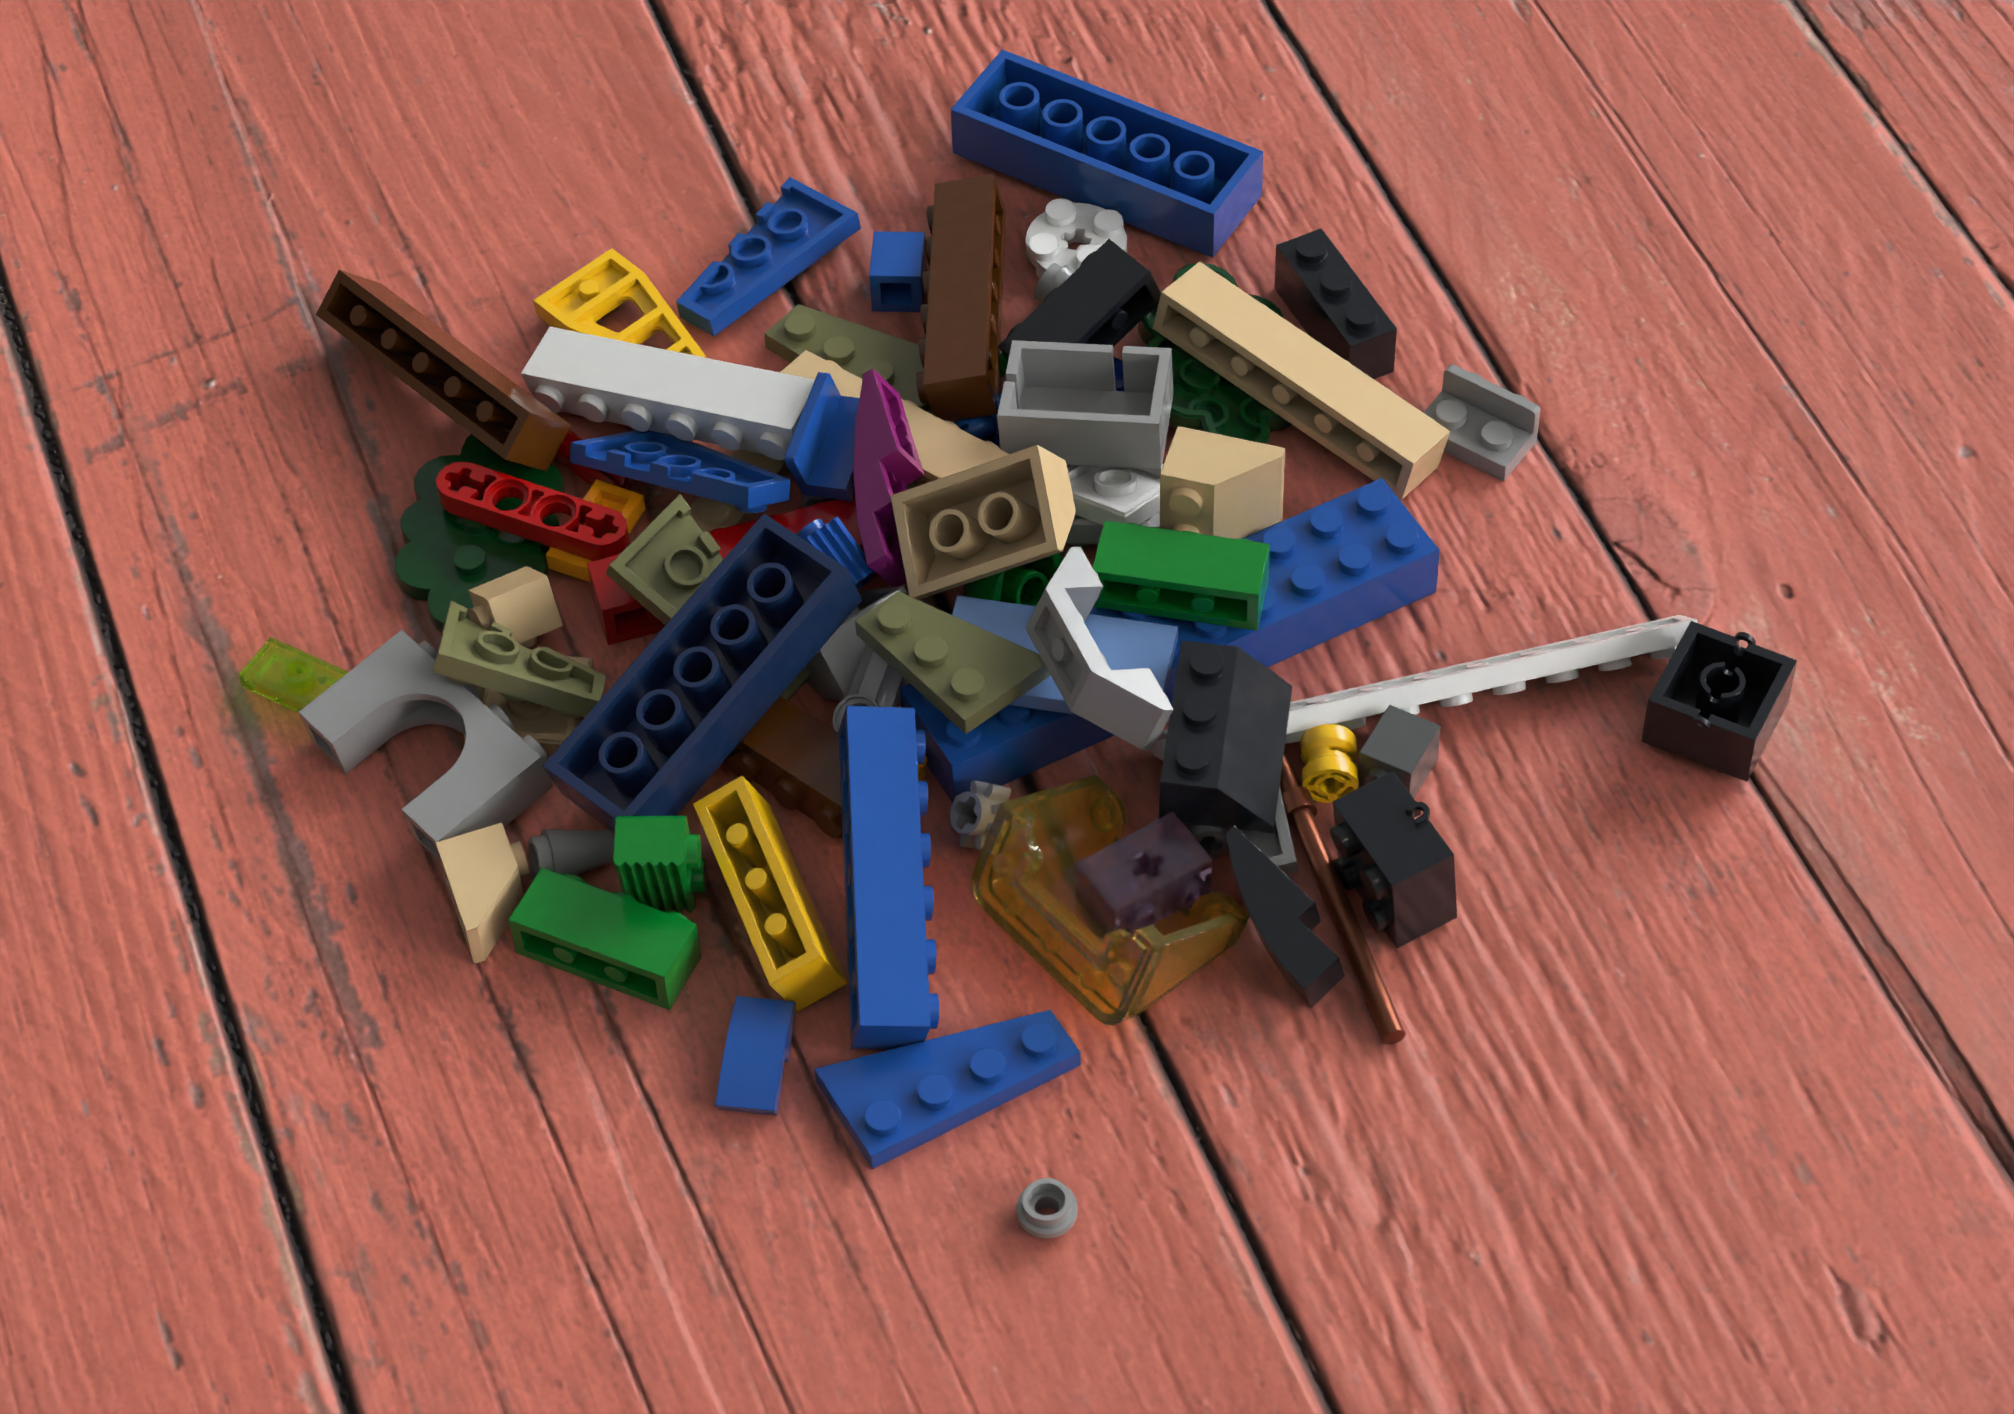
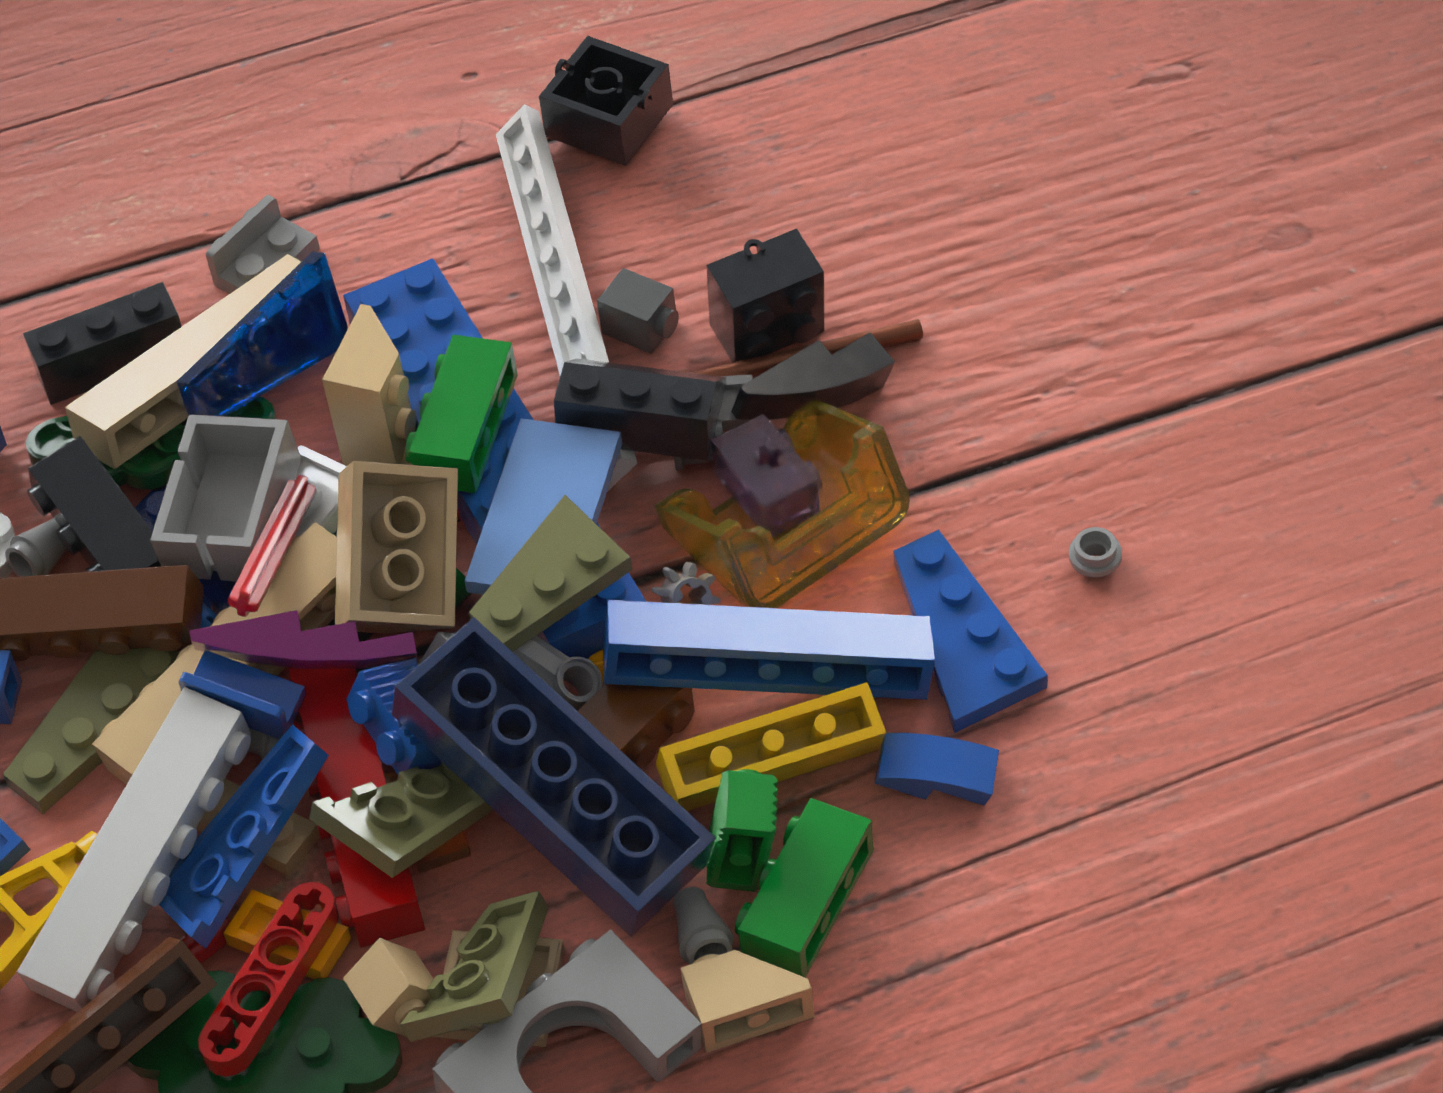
camera: 85 degrees left, 0 degrees up
(1008, 437) = (272, 546): none -> axle
(1118, 701) = (564, 468): light grey slope -> none
(1321, 430) = (272, 343): none -> clear blue wing
(1327, 771) = (646, 352): yellow wheel -> none

